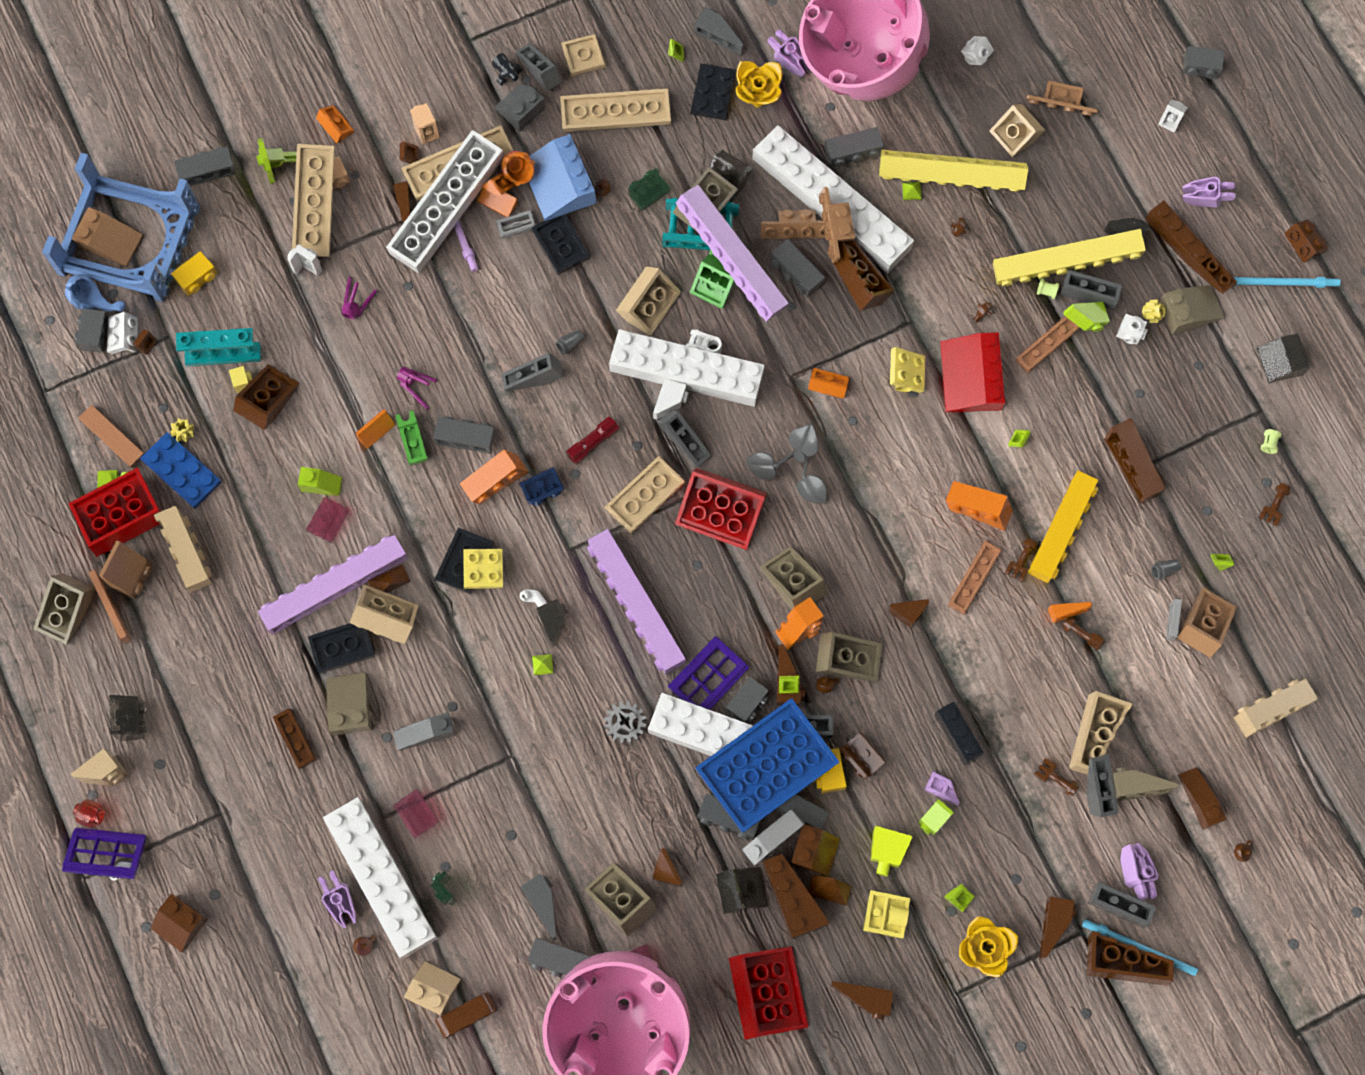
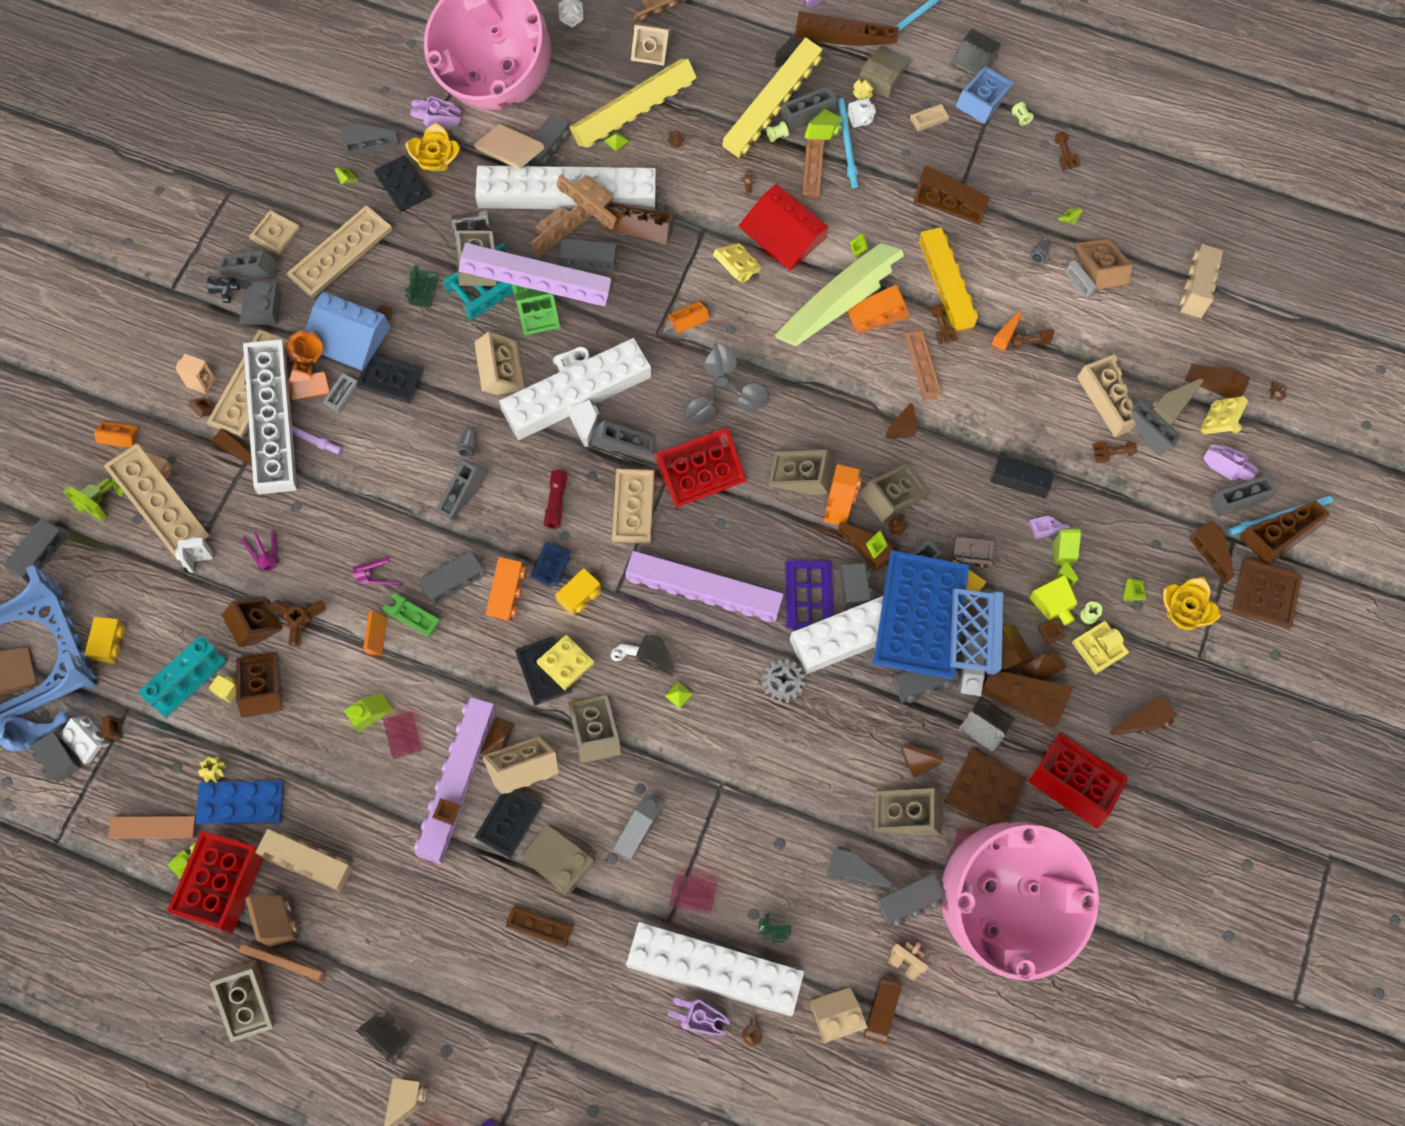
camera: 45 degrees left, 5 degrees down
(301, 345) = (251, 621): none -> reddish brown slope
(302, 601) = (446, 812): none -> reddish brown plate
(327, 375) = (291, 613): none -> reddish brown bush
(459, 634) = (594, 729): none -> dark tan slope
(514, 989) = (900, 954): none -> tan hips
(542, 525) = (578, 592): none -> yellow brick
(693, 935) = (985, 789): none -> reddish brown plate
(805, 827) = (992, 635): none -> medium blue fence
(818, 128) = (509, 146): none -> tan tile
(861, 869) = (1051, 632): none -> reddish brown plate
(900, 886) = (1090, 607): none -> yellowish green bush
(917, 835) = (1068, 572): none -> lime slope
(961, 466) = (841, 294): none -> yellowish green slope
(1061, 995) = (1267, 593): none -> reddish brown plate
(1078, 371) = (852, 171): none -> medium azure bar
(1173, 830) = (1224, 416): none -> light yellow plate
(1189, 380) = (929, 117): none -> tan tile
(1253, 398) = (984, 94): none -> medium blue slope

